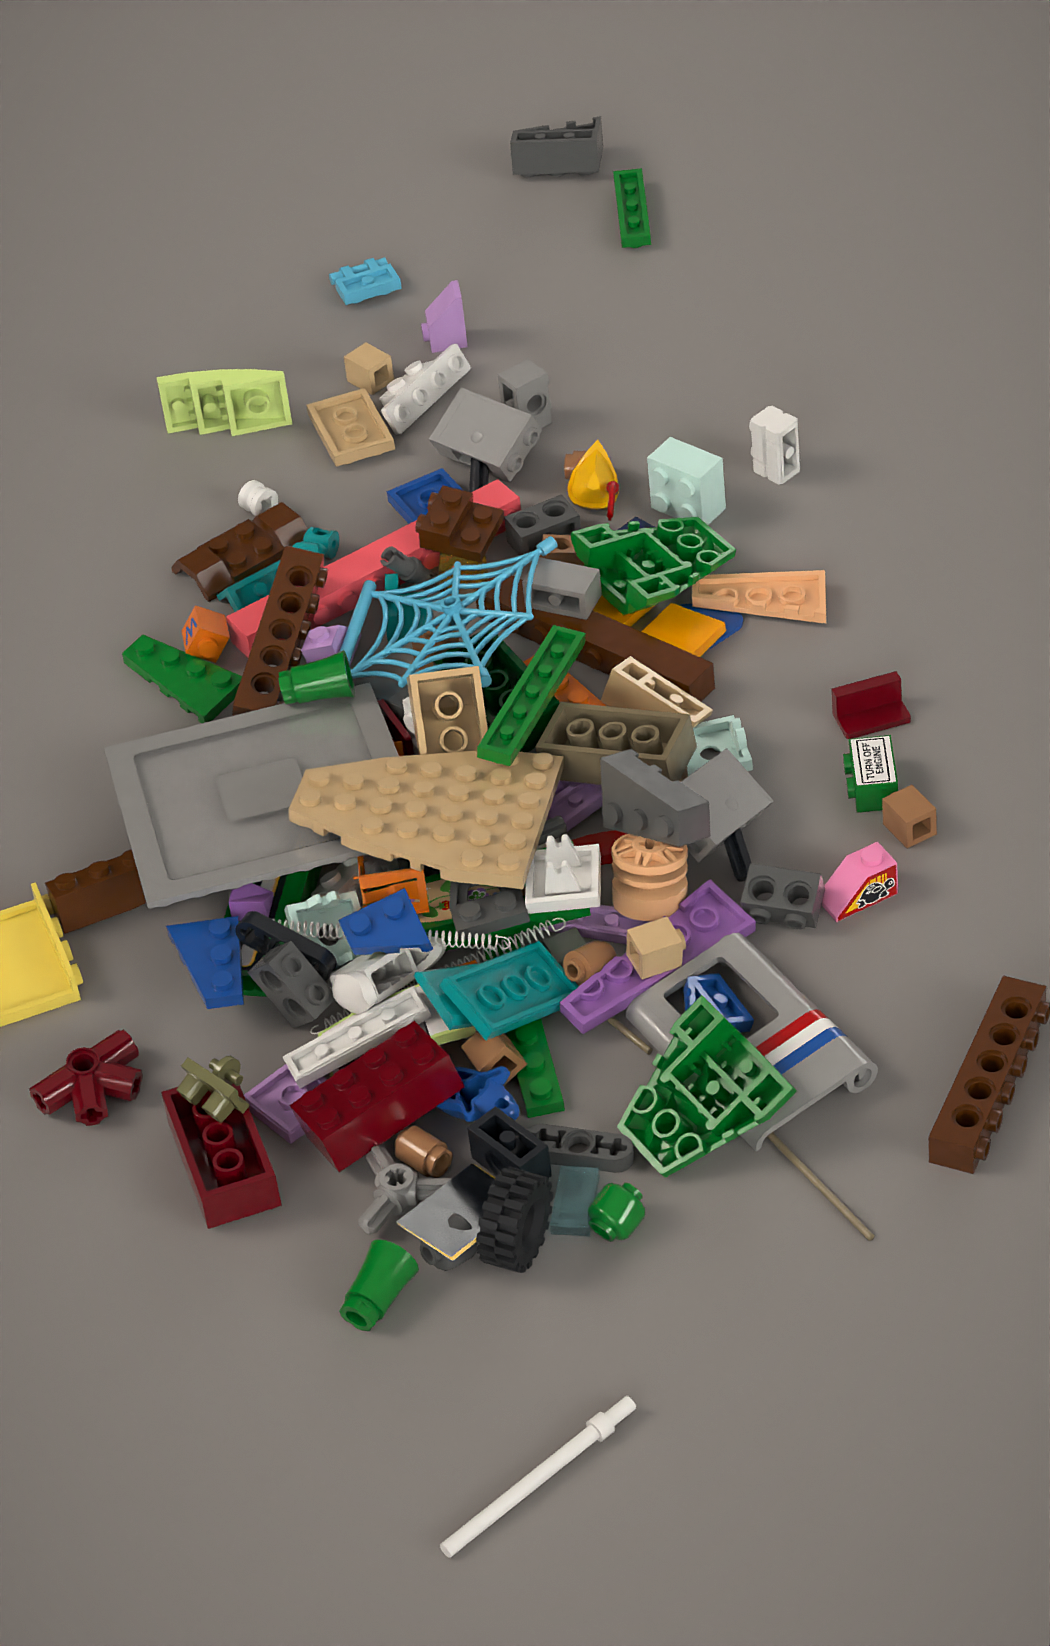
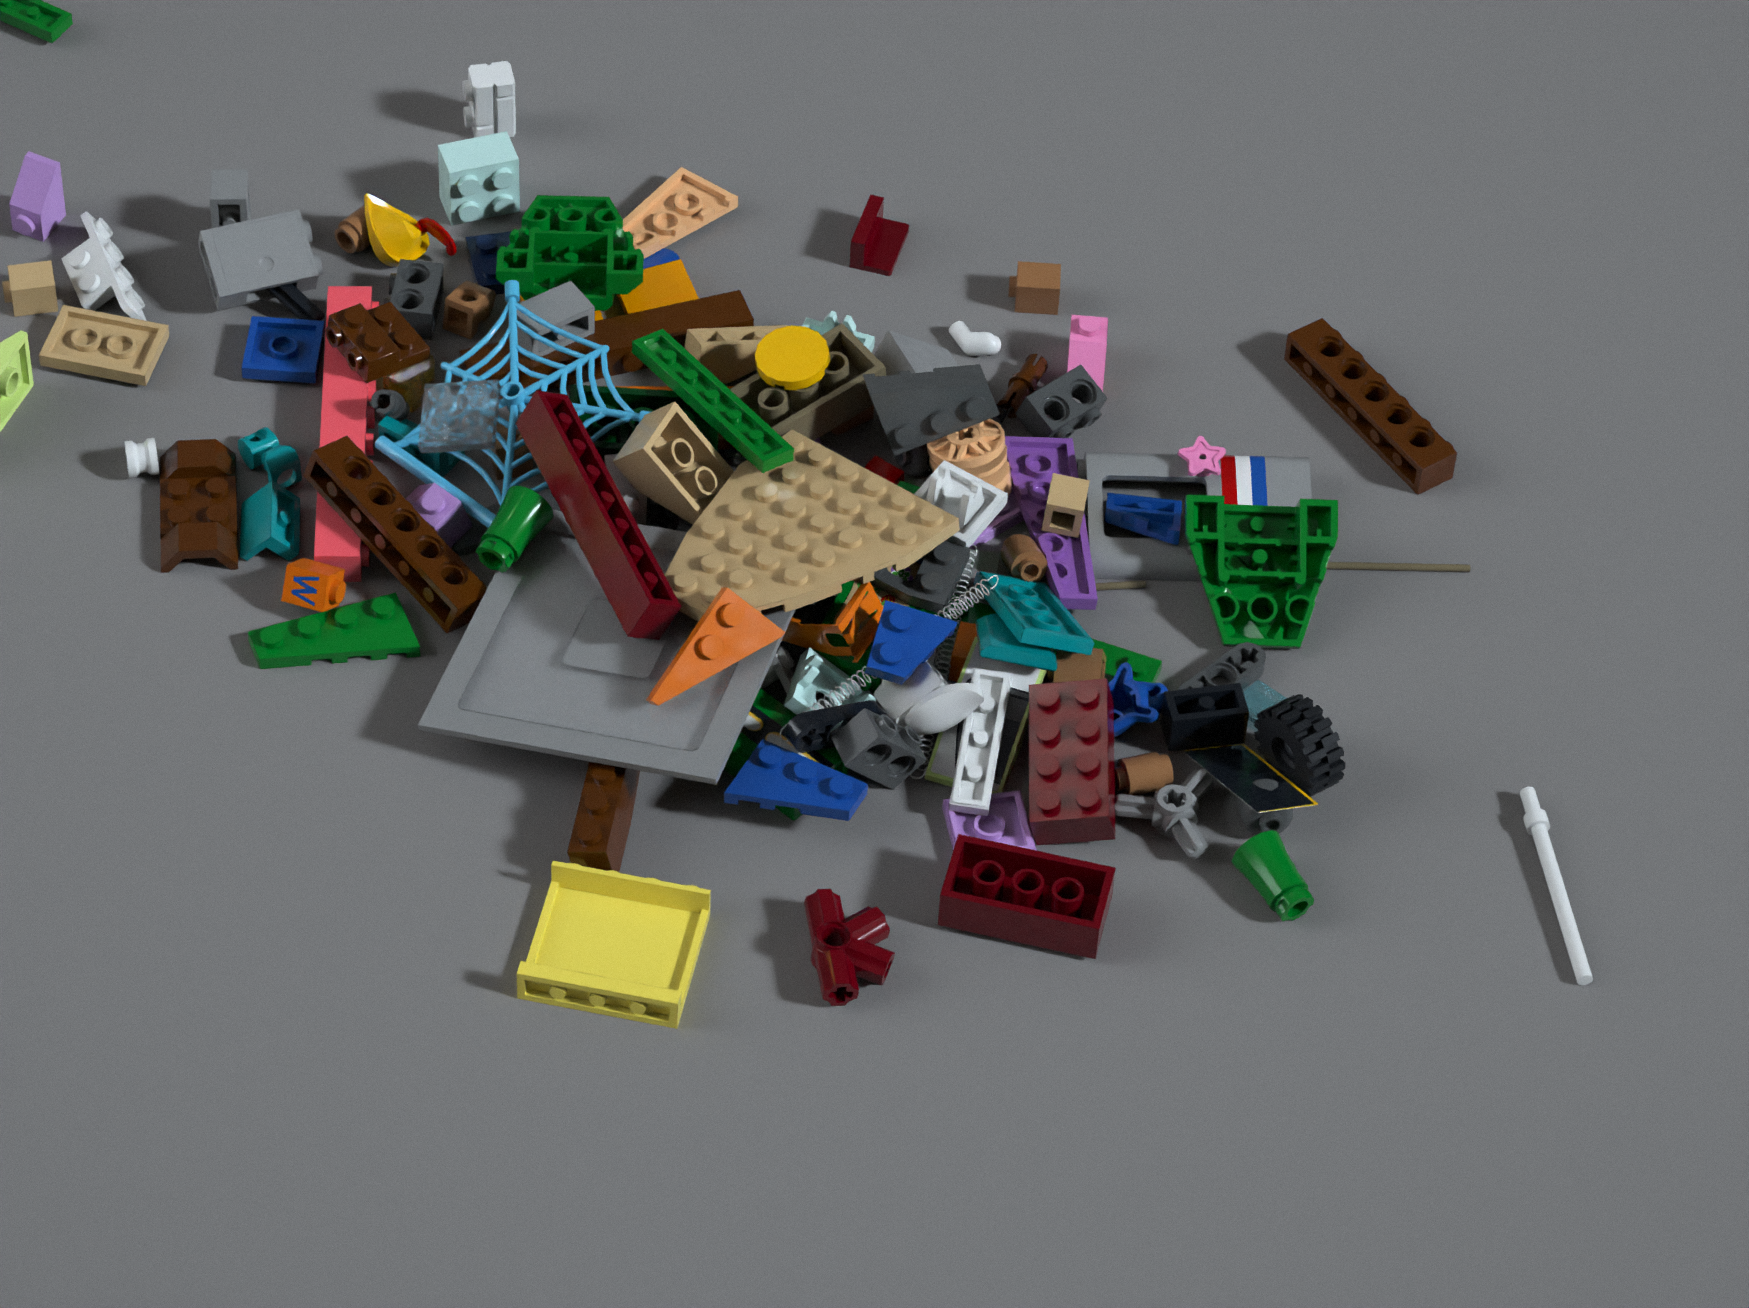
camera: 65 degrees left, 5 degrees up
(224, 1096) = (987, 842): olive hips -> none
(250, 898) = (758, 725): medium lavender slope -> none
(278, 824) = (721, 638): none -> orange wing
(347, 702) = (598, 516): none -> dark red brick
(409, 596) = (459, 416): none -> clear tile
(616, 1211) = (1326, 688): green head -> none
(623, 709) = (792, 357): none -> yellow tile
(792, 1005) = (1199, 466): none -> bright pink plate
(813, 863) = (1023, 384): none -> reddish brown pin
(814, 817) = (974, 342): none -> white arm
(872, 771) = (965, 279): brick -> none

